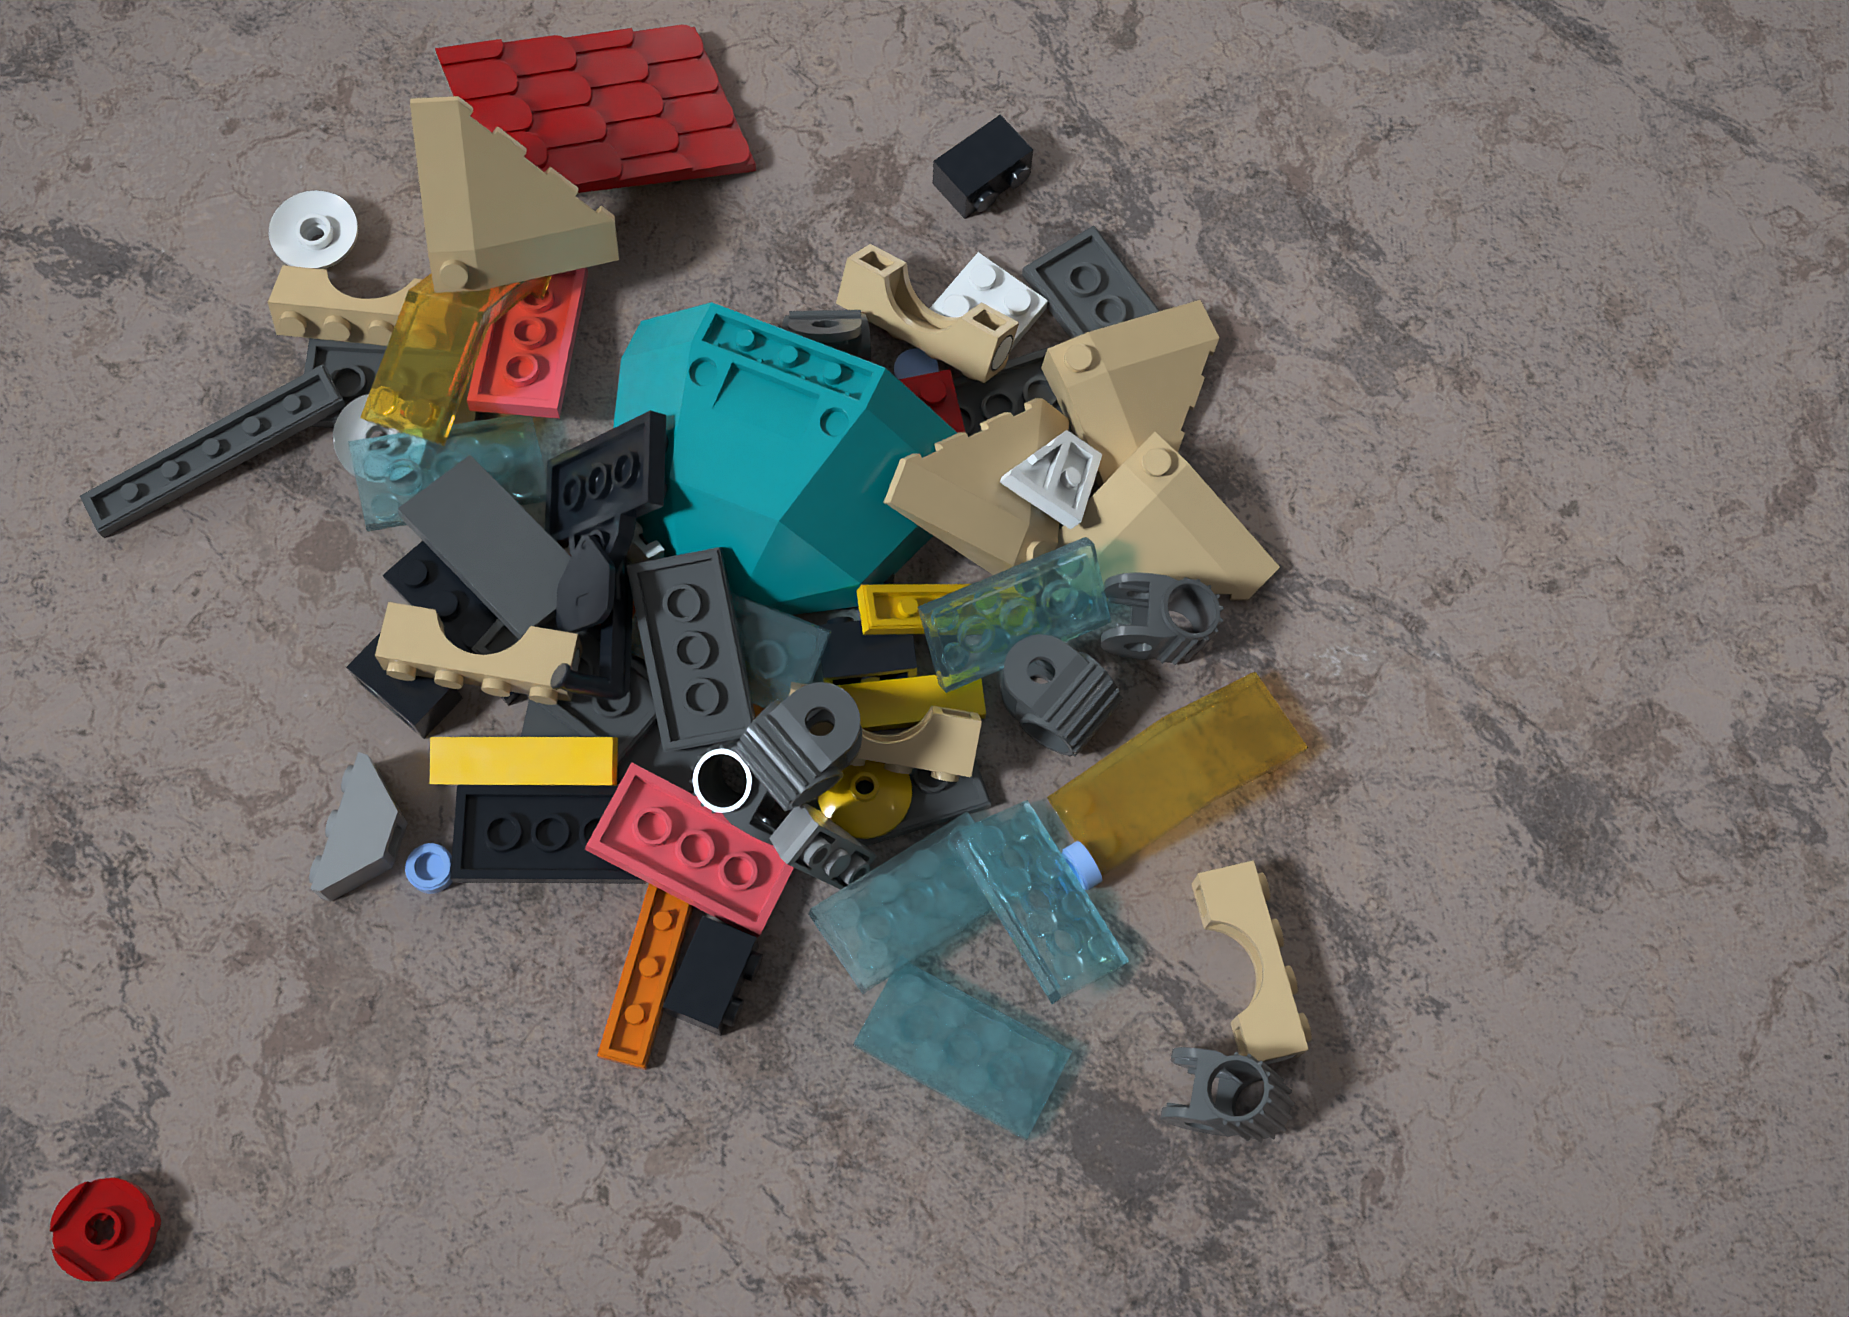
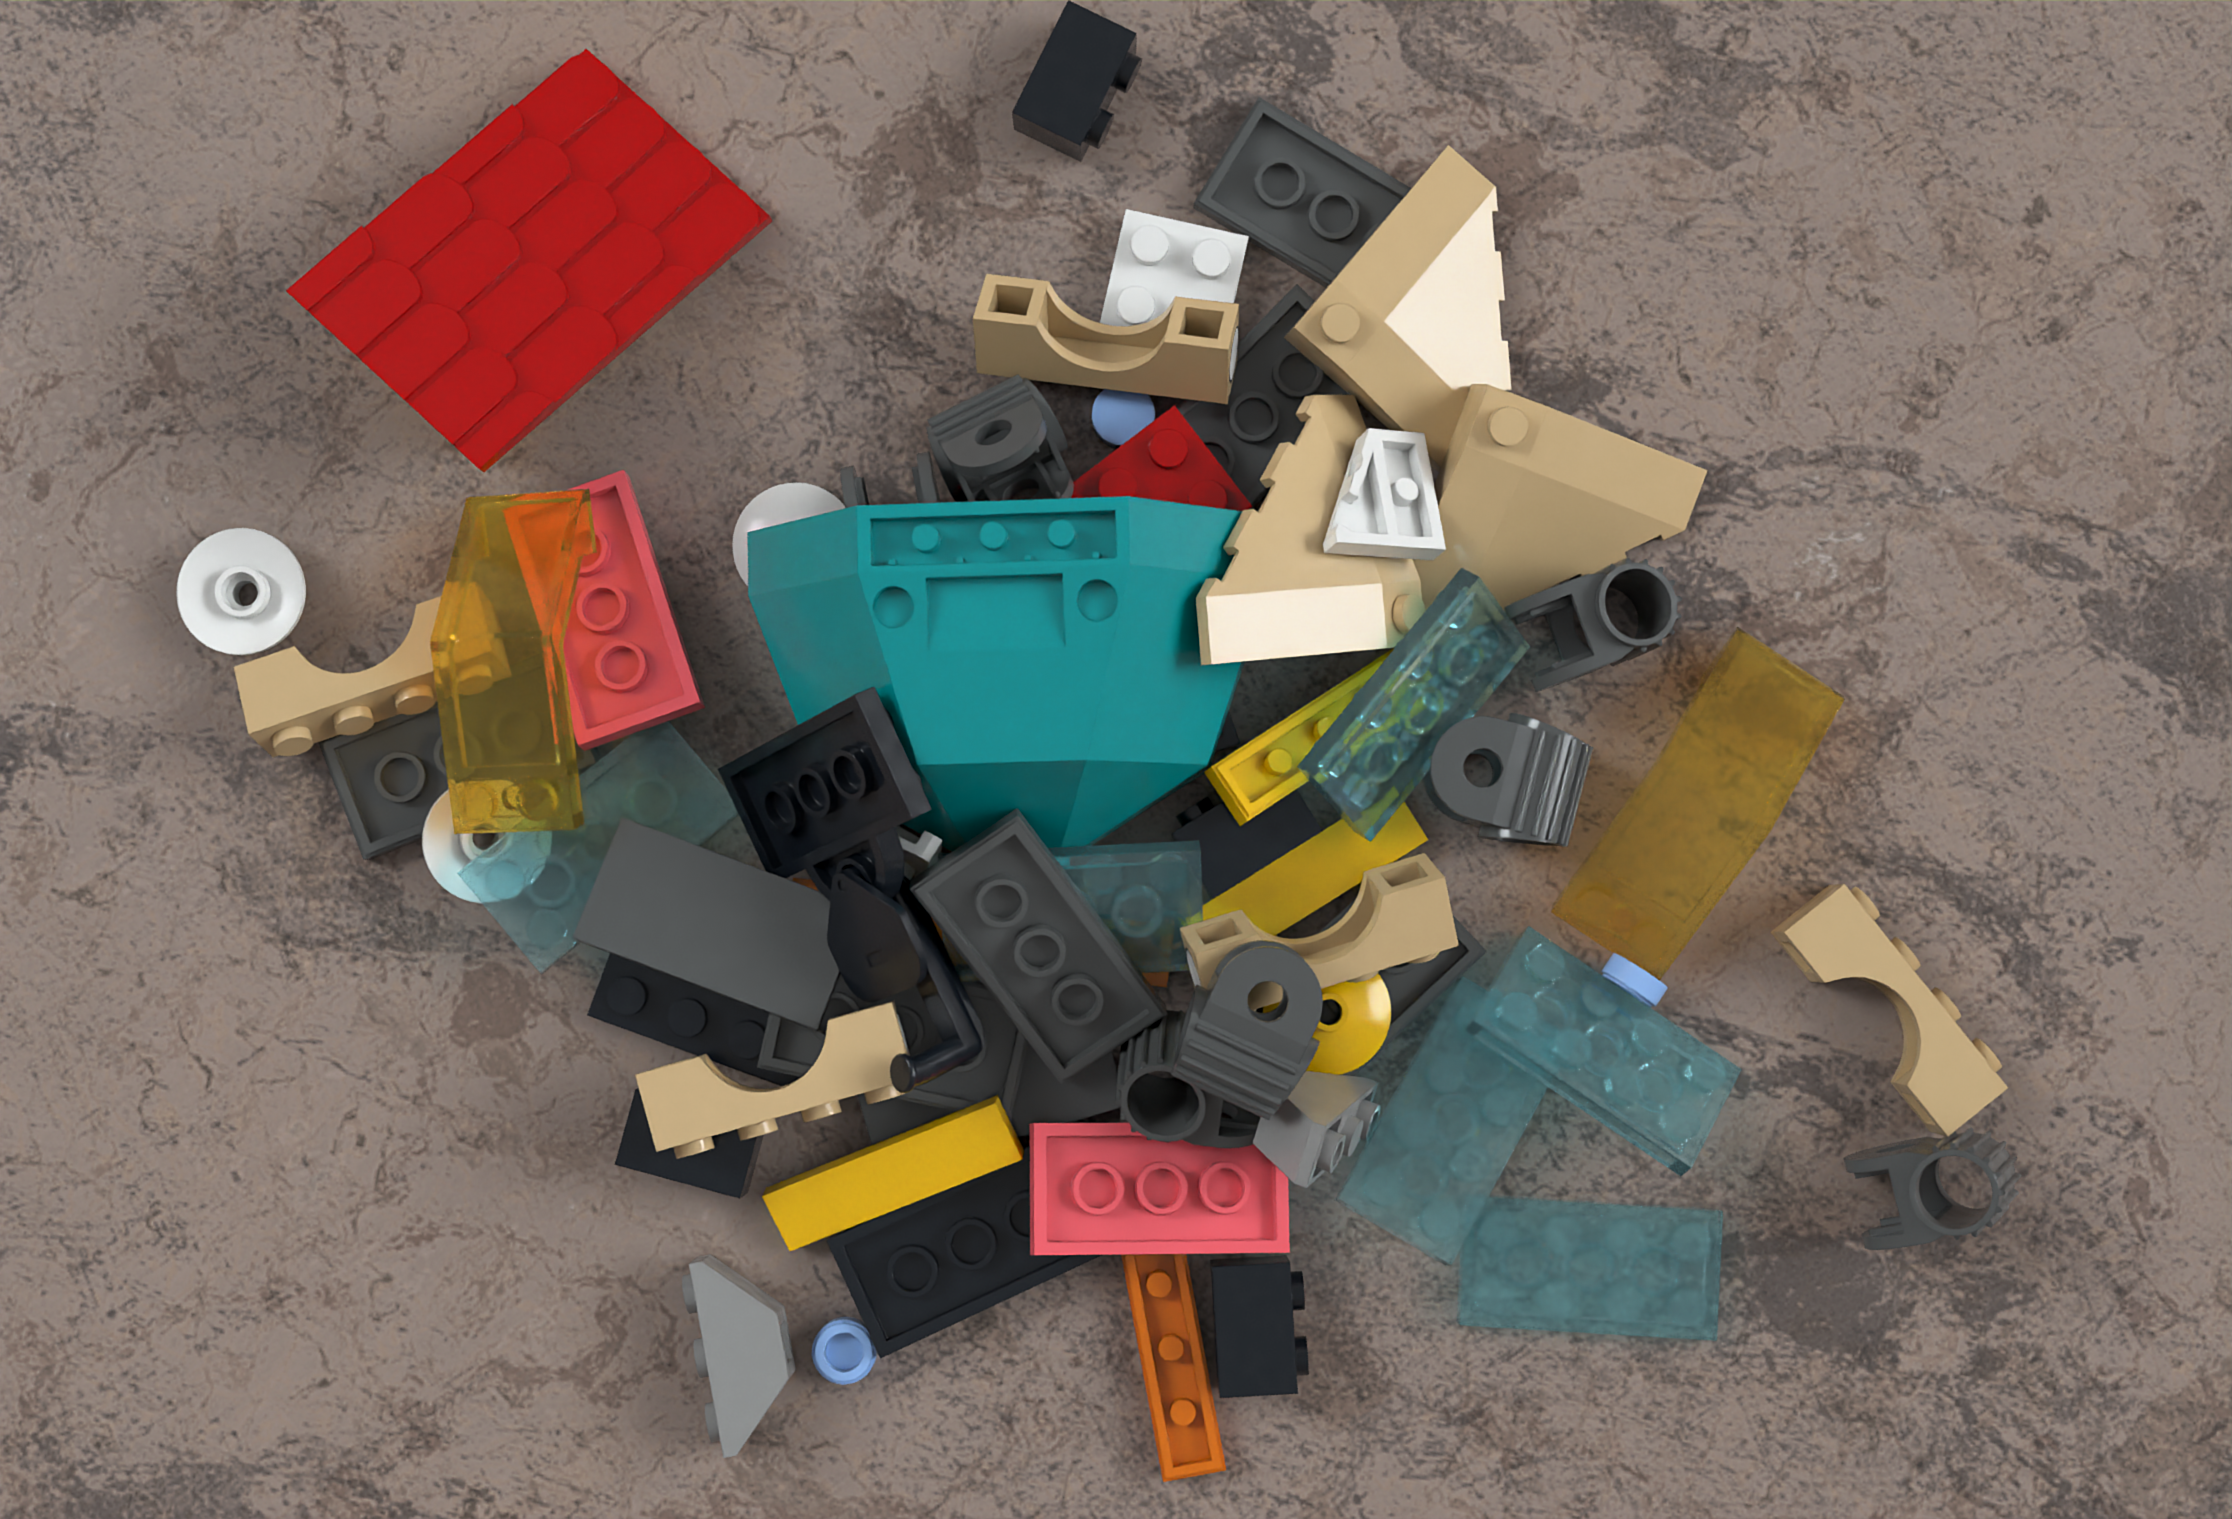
camera: 20 degrees left, 15 degrees up
(212, 451) = (282, 952): dark grey tile -> none
(494, 211) = (494, 494): tan slope -> none

